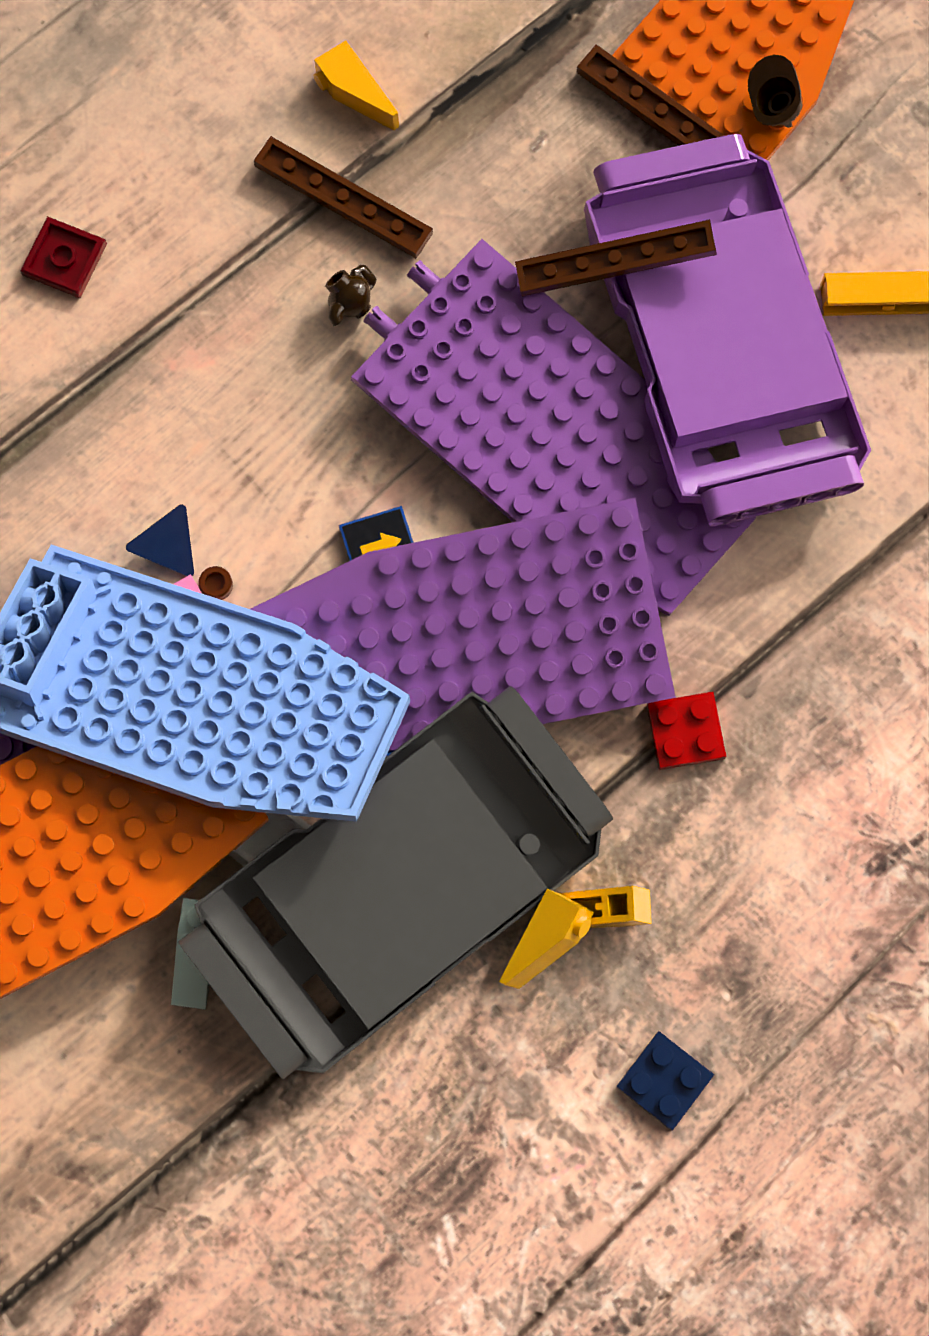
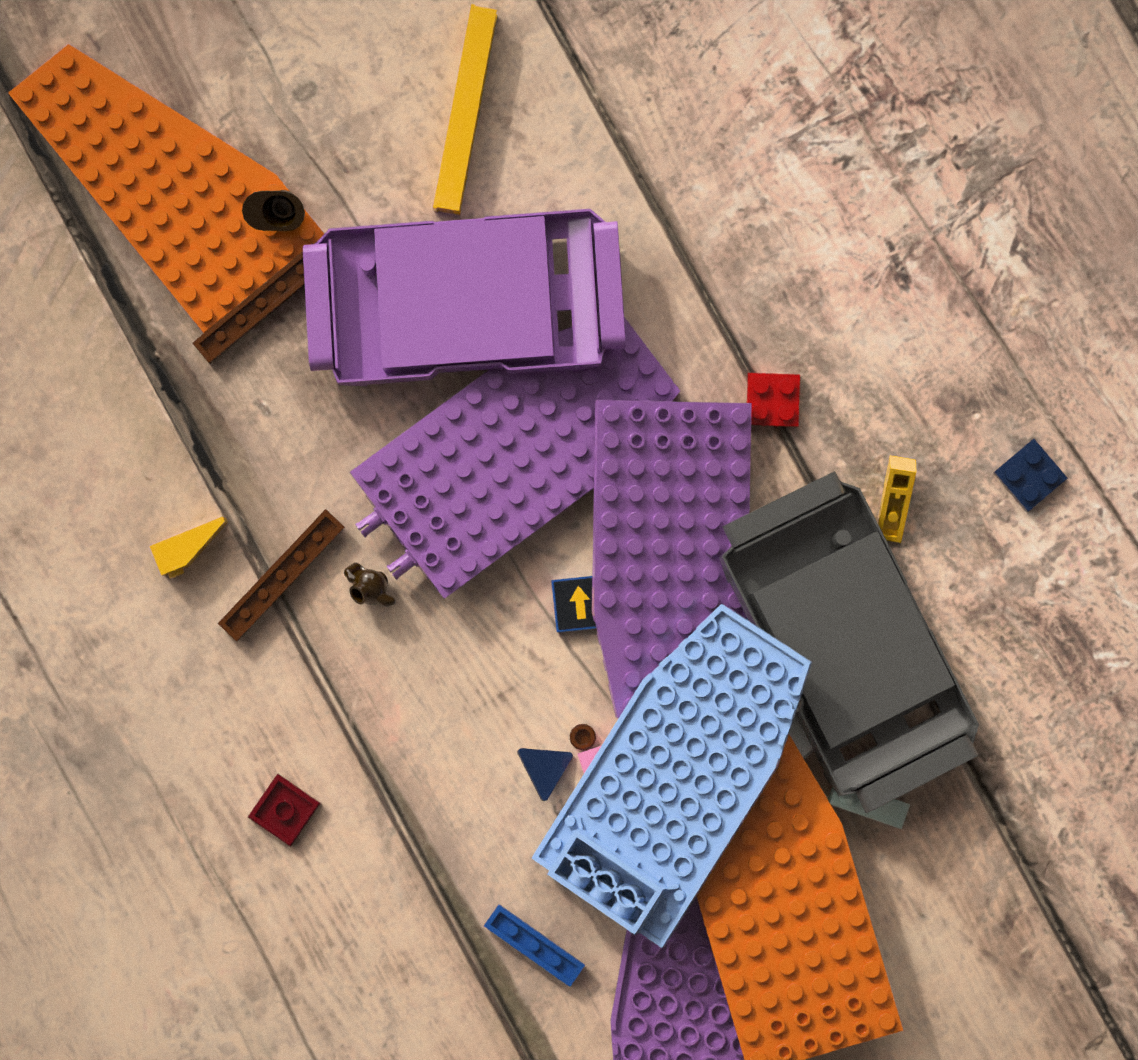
camera: 75 degrees left, 10 degrees up
(549, 935) = (907, 532): yellow slope -> none
(616, 258) = (397, 371): reddish brown plate -> none

